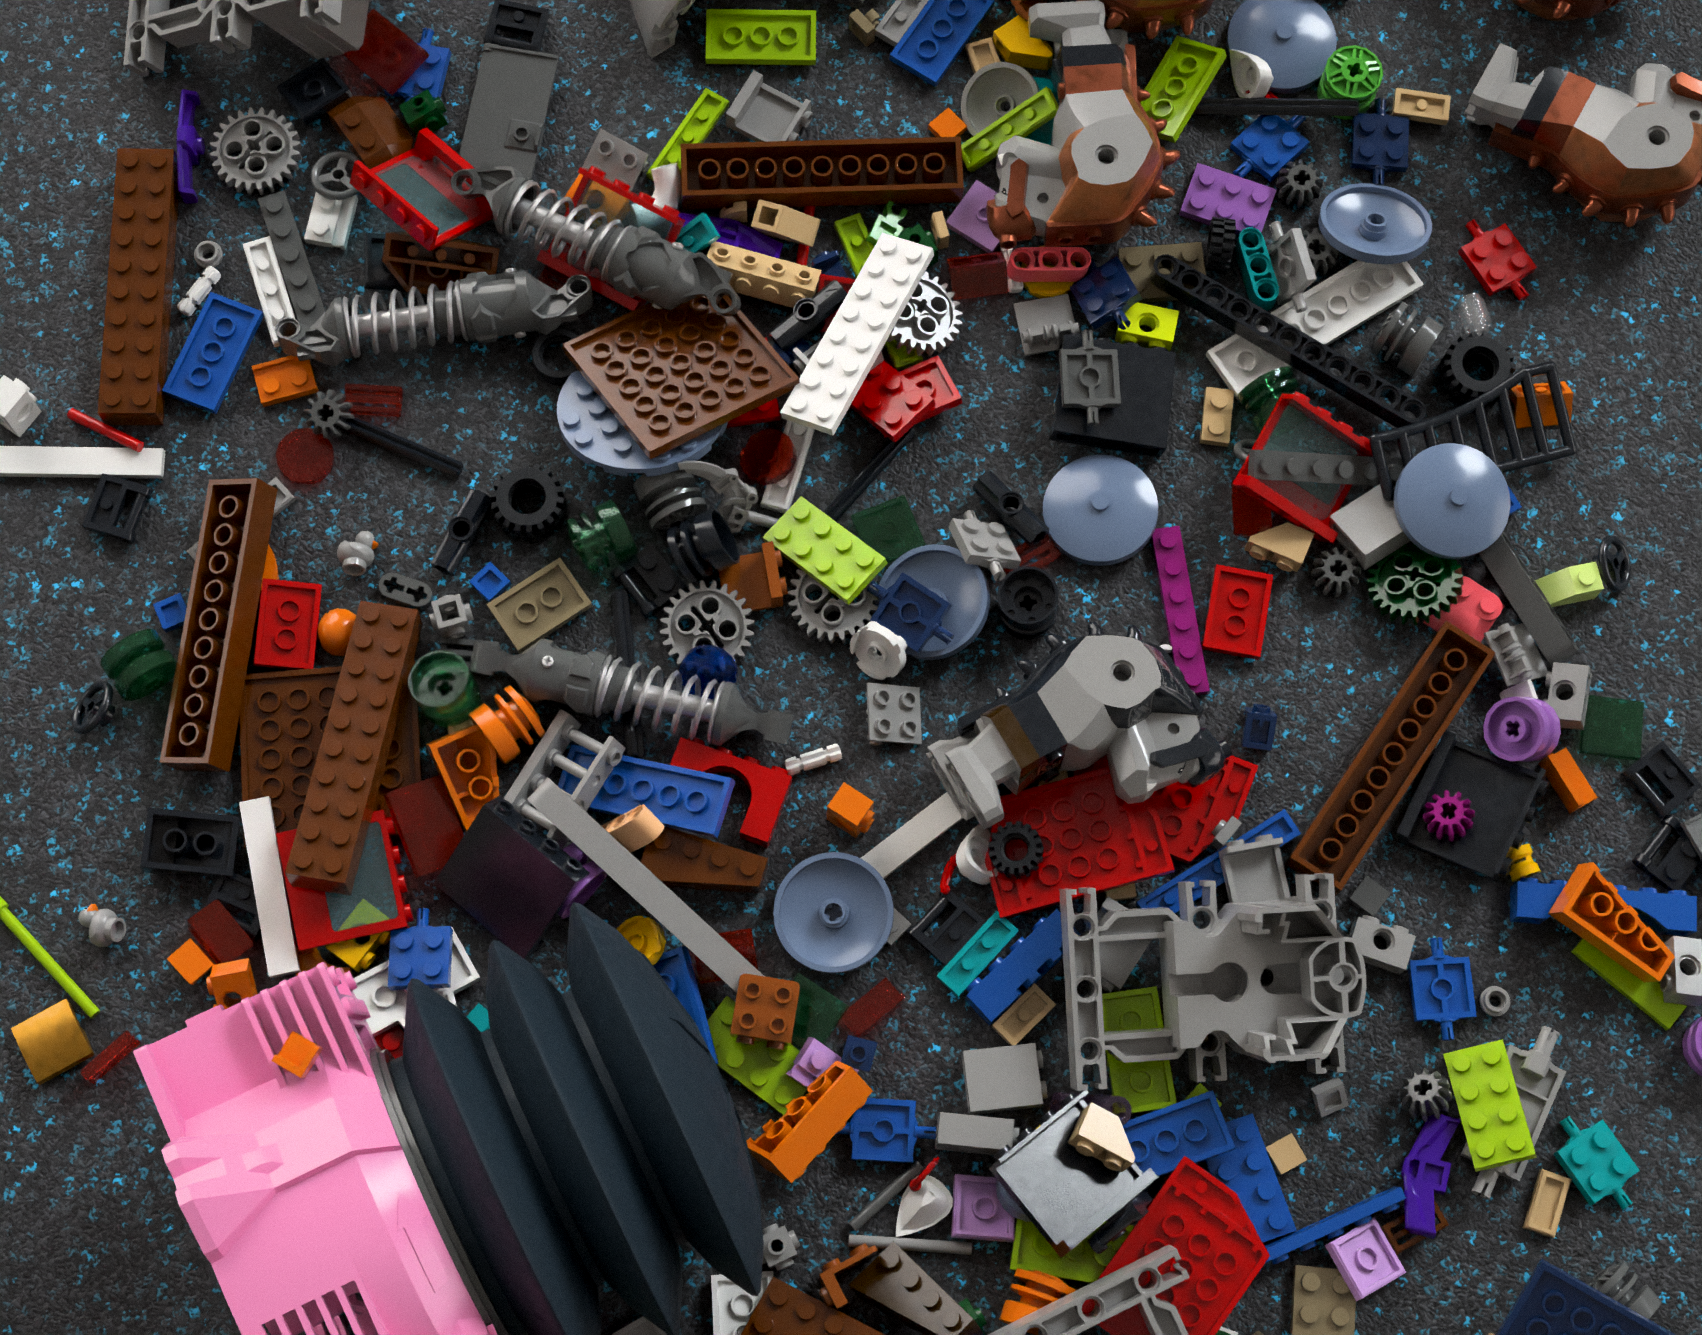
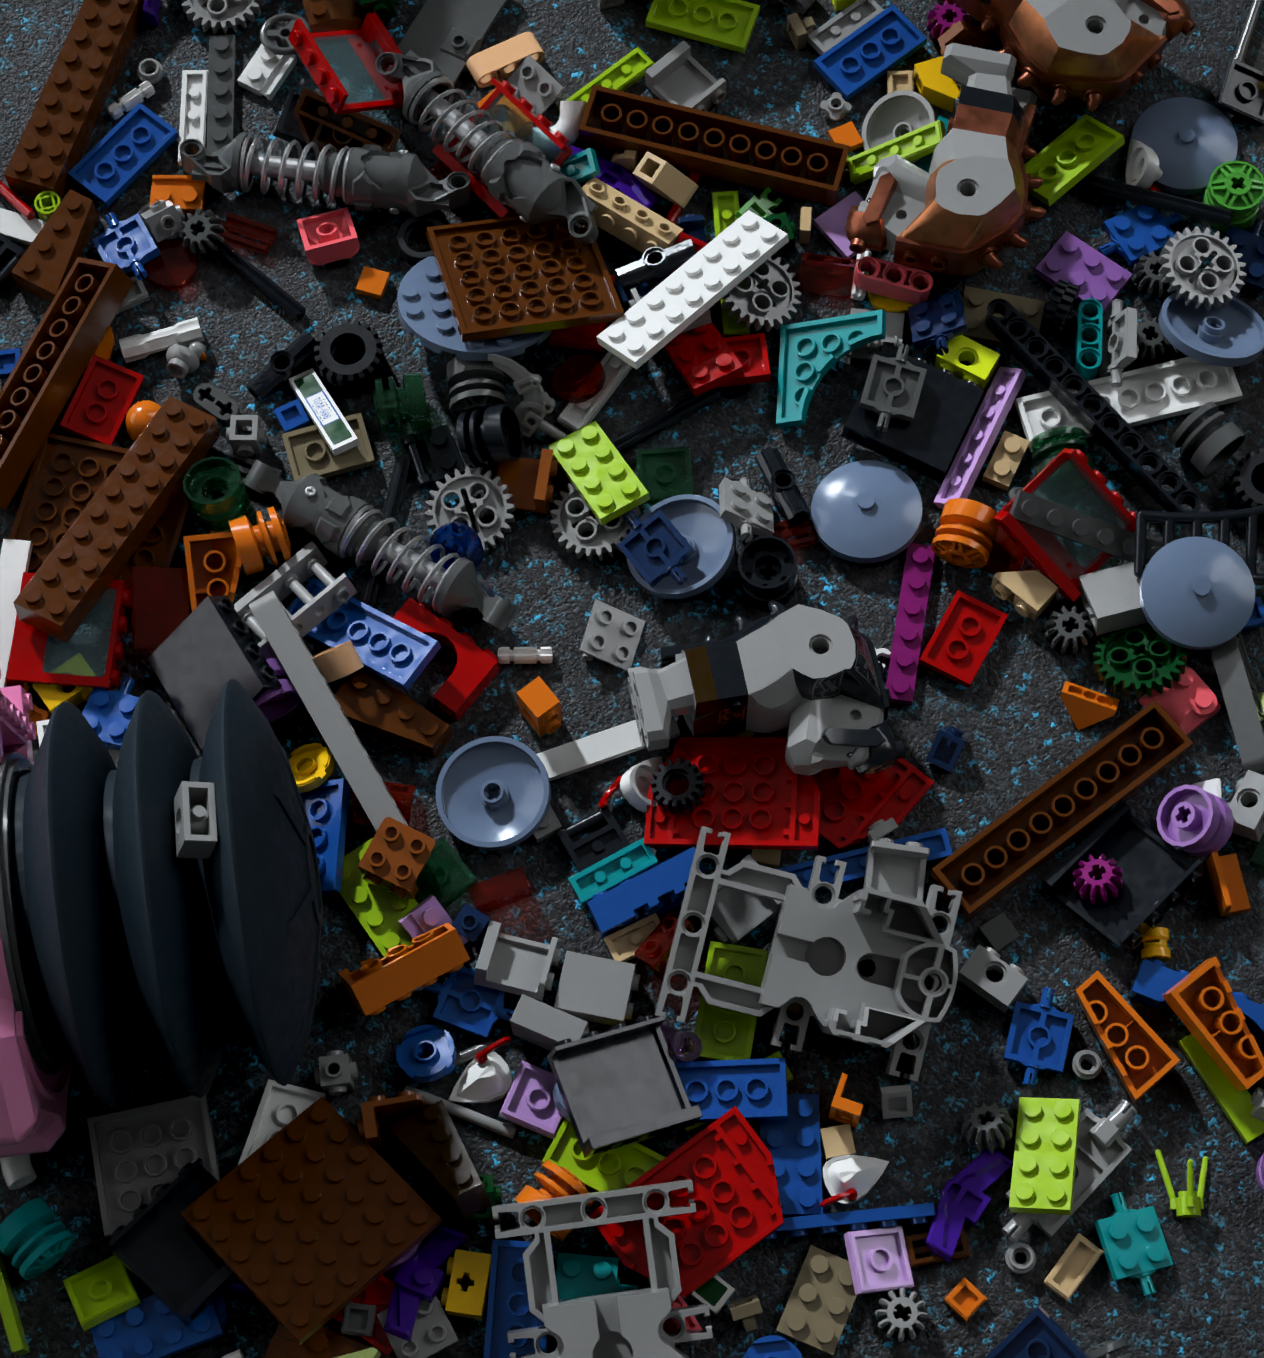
camera: 25 degrees right, 5 degrees down
(159, 438) = (46, 204): none -> lime wheel
(181, 475) = (56, 247): none -> reddish brown wedge
(253, 450) = (127, 244): none -> blue plate
(282, 412) = (163, 220): none -> light grey brick
(308, 551) = (142, 345): none -> white axle
(460, 379) = (328, 236): none -> coral slope
(522, 415) = (372, 282): none -> orange tile
(522, 568) = (323, 412): none -> tile
(574, 139) = (503, 59): none -> light nougat beam
(613, 1077) = (195, 820): none -> light grey brick
(876, 1202) = (431, 1068): none -> blue plate
(892, 647) = (615, 563): white plate -> none
(917, 1078) = (516, 963): none -> light grey panel
(923, 103) = (832, 112): none -> light grey plate
(992, 360) = (811, 351): none -> teal plate
(1050, 1016) = (657, 946): none -> clear red bracket
(1103, 1137) = (662, 1063): slope -> none
(1116, 1226) = (669, 1139): black plate -> none
(1186, 402) = (981, 435): none -> lavender plate
(1207, 505) = (965, 533): none -> orange wheel
(1278, 1121) = (843, 1109): none -> orange panel
(1310, 1186) = (851, 1177): none -> white piece
(1368, 174) = (1184, 252): none -> light grey gear
(1378, 642) = (1087, 705): none -> orange slope
(1405, 1317) = (898, 1324): none -> light grey gear
(1457, 1269) = (965, 1299): none -> orange tile
(1504, 1207) = (1024, 1249): none -> light grey plate
(1516, 654) = (1215, 752): light grey hinge -> none
(1527, 966) = (1127, 1039): none -> orange wedge
(1634, 1105) = (1188, 1202): none -> lime plant

